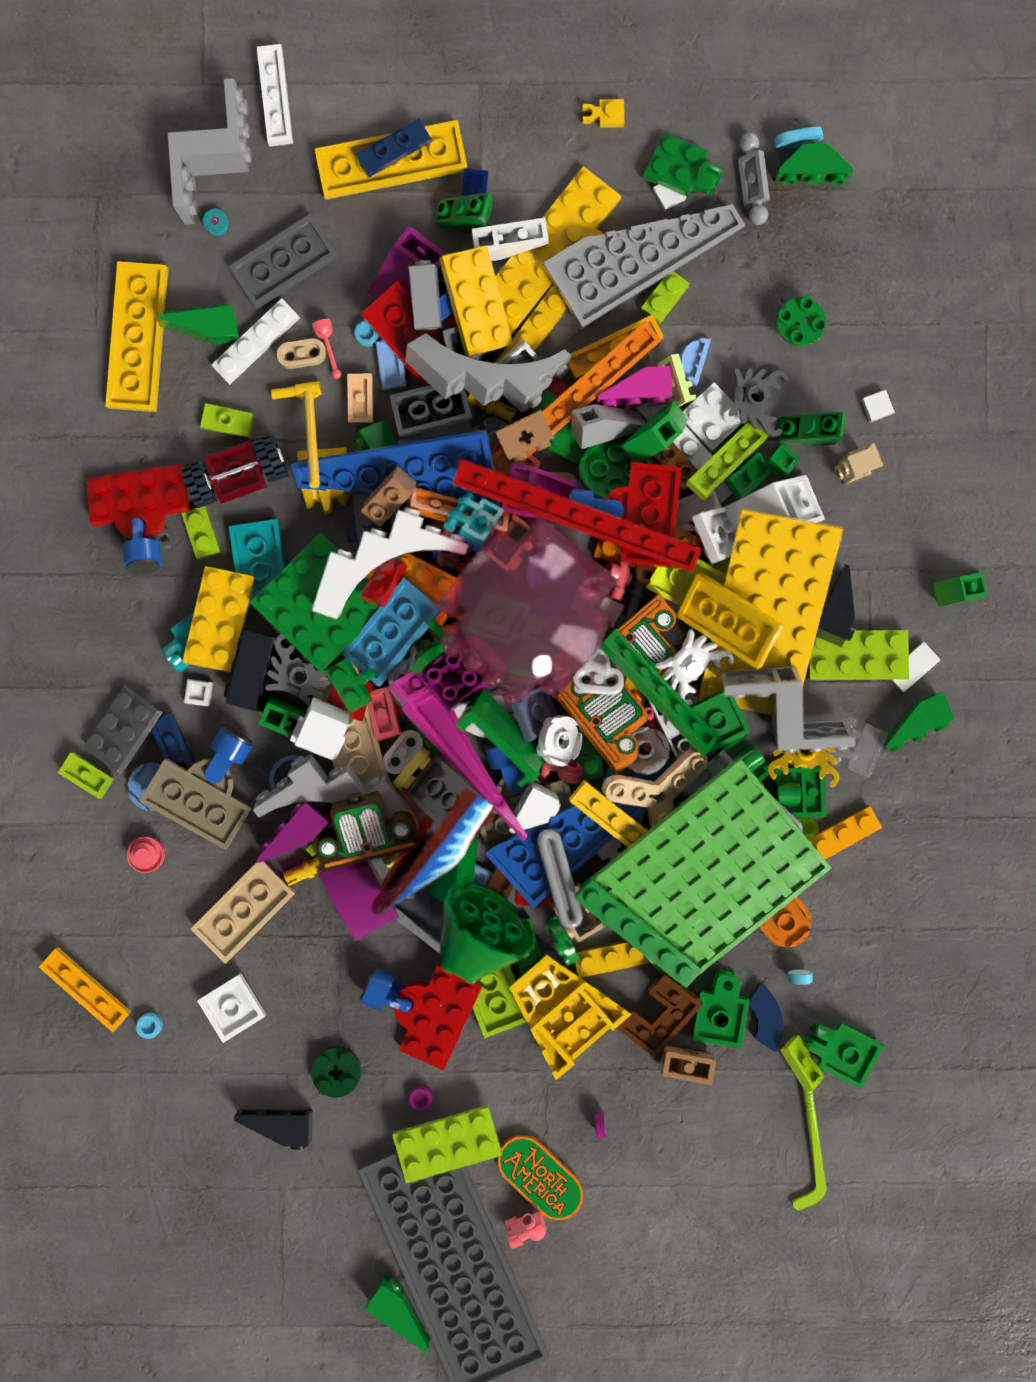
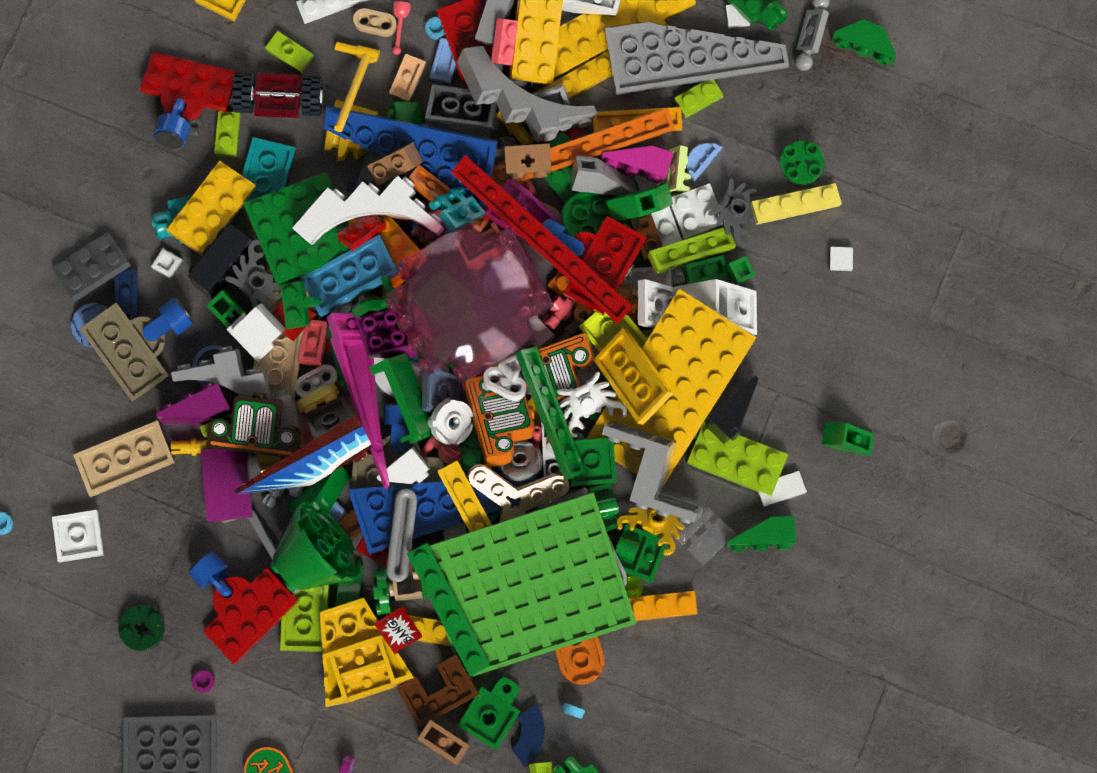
camera: 20 degrees right, 10 degrees down
(86, 775) = (43, 292): lime plate -> none
(145, 854) = (63, 378): coral plate -> none
(282, 1126) = (78, 655): black slope -> none
(447, 319) = (504, 41): none -> coral plate
(447, 1144) = (209, 725): lime plate -> none
(595, 972) = (398, 630): none -> sticker
(798, 137) = (860, 12): medium azure tile -> none
(810, 367) = (795, 203): none -> light yellow plate
(812, 428) = (773, 253): green slope -> none
(858, 464) = (800, 297): tan window -> none

